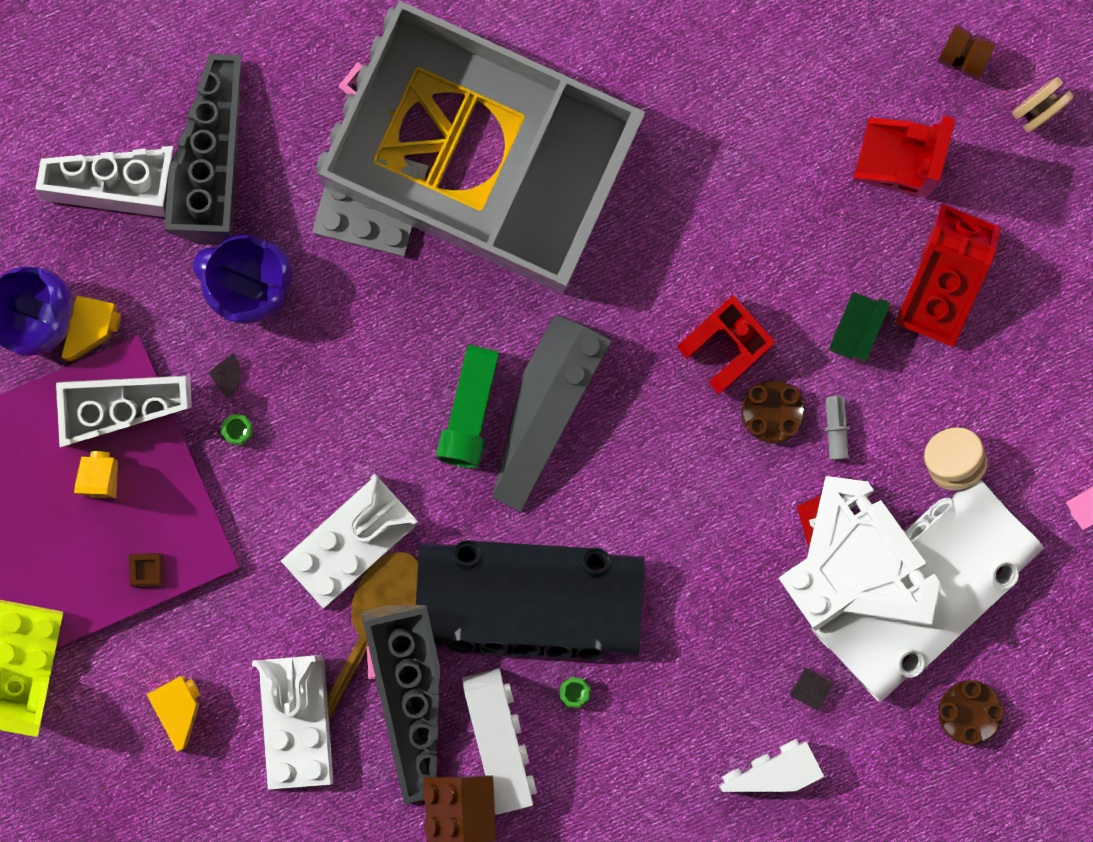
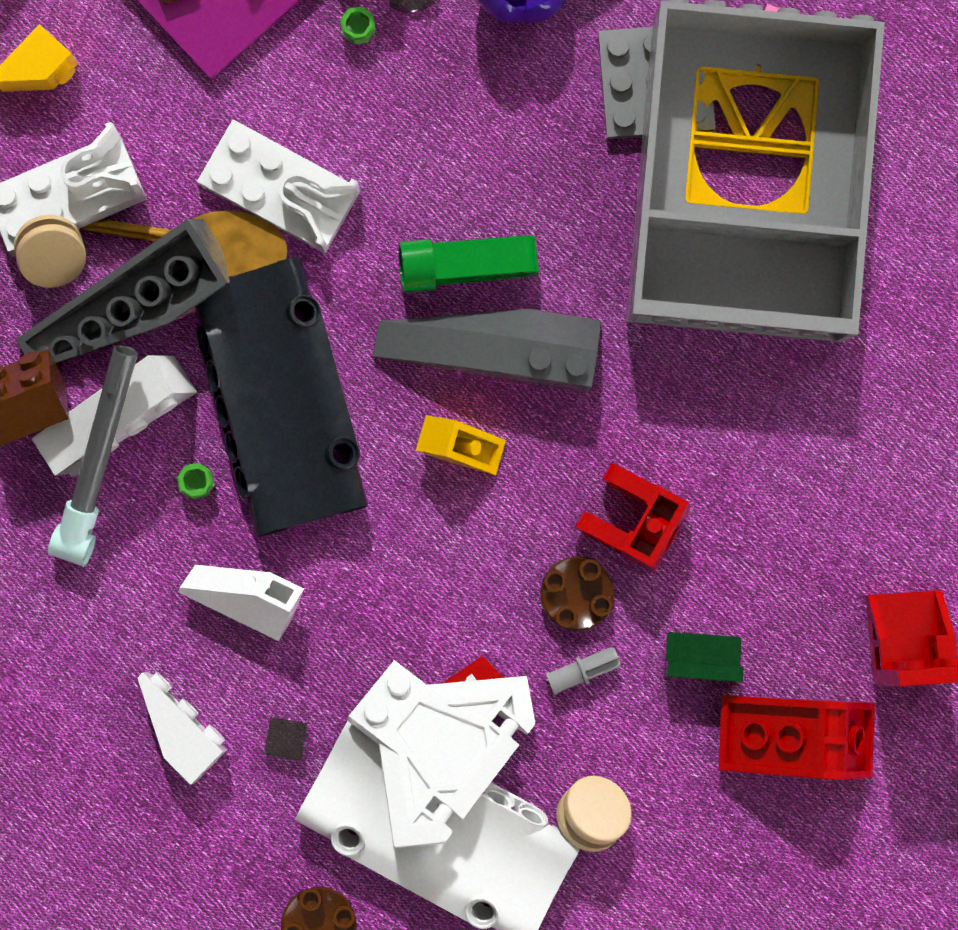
camera: 70 degrees right, 0 degrees up
(342, 748) = (49, 251): none -> tan head
(587, 807) = (73, 536): none -> dark grey piece
(619, 464) = (460, 444): none -> yellow slope
(686, 679) = (247, 596): none -> white slope

